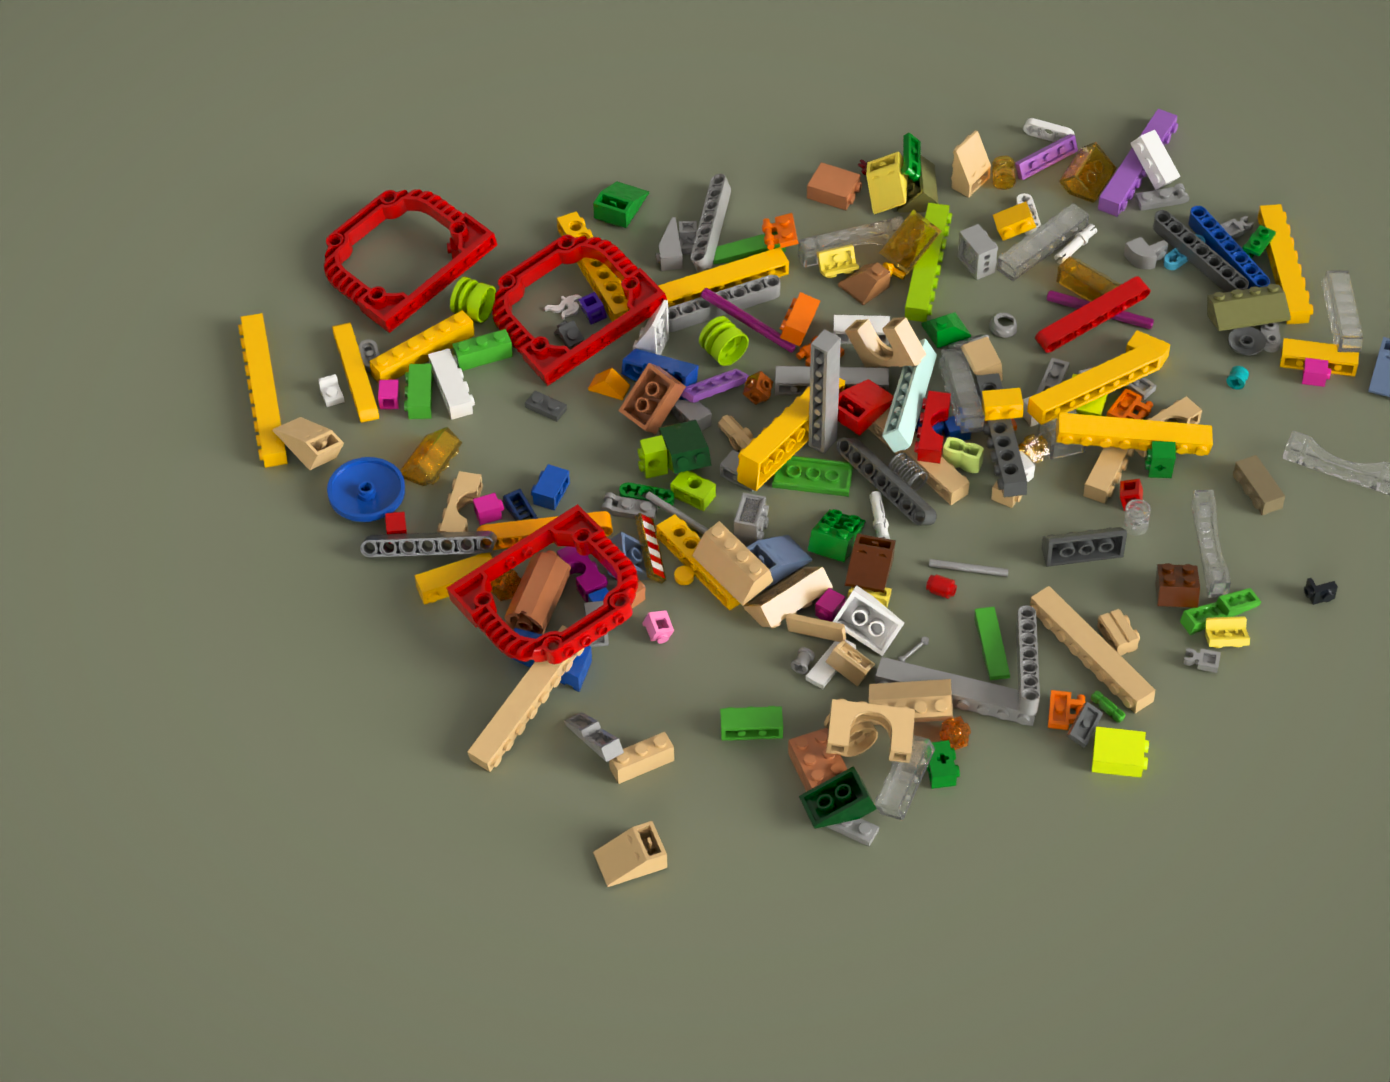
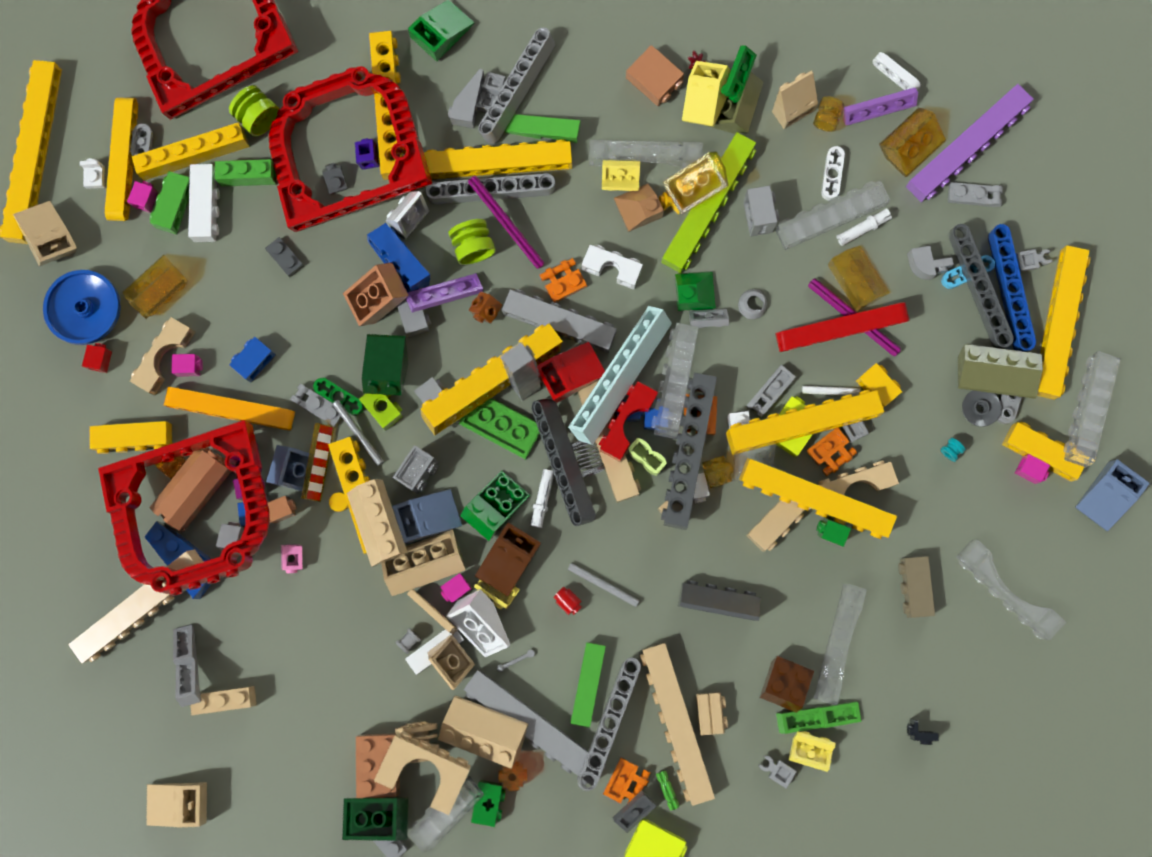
camera: 25 degrees right, 30 degrees up
(420, 548) = (115, 393): dark grey beam -> none
(508, 500) = (223, 365): dark blue slope -> none
(570, 302) = (351, 135): white piece -> none
(610, 384) = (351, 253): light orange slope -> none
(653, 457) = (351, 360): lime brick -> none
(738, 436) = (447, 358): tan piece -> none
(751, 723) = (335, 695): bright green brick -> none
(786, 230) = (580, 127): orange plate -> none
(799, 318) = (555, 237): orange brick -> none
(874, 353) = (621, 313): tan arch -> none
(982, 357) = (710, 348): tan slope -> none
(1002, 404) = (700, 426): yellow brick -> none
(1014, 221) = (813, 182): yellow brick -> none
(1130, 491) = (788, 548): red brick -> none
(1137, 517) = (783, 587): clear wheel -> none
(1155, 159) = (985, 153): white brick -> none
(1258, 241) = (1046, 291): green bracket -> none

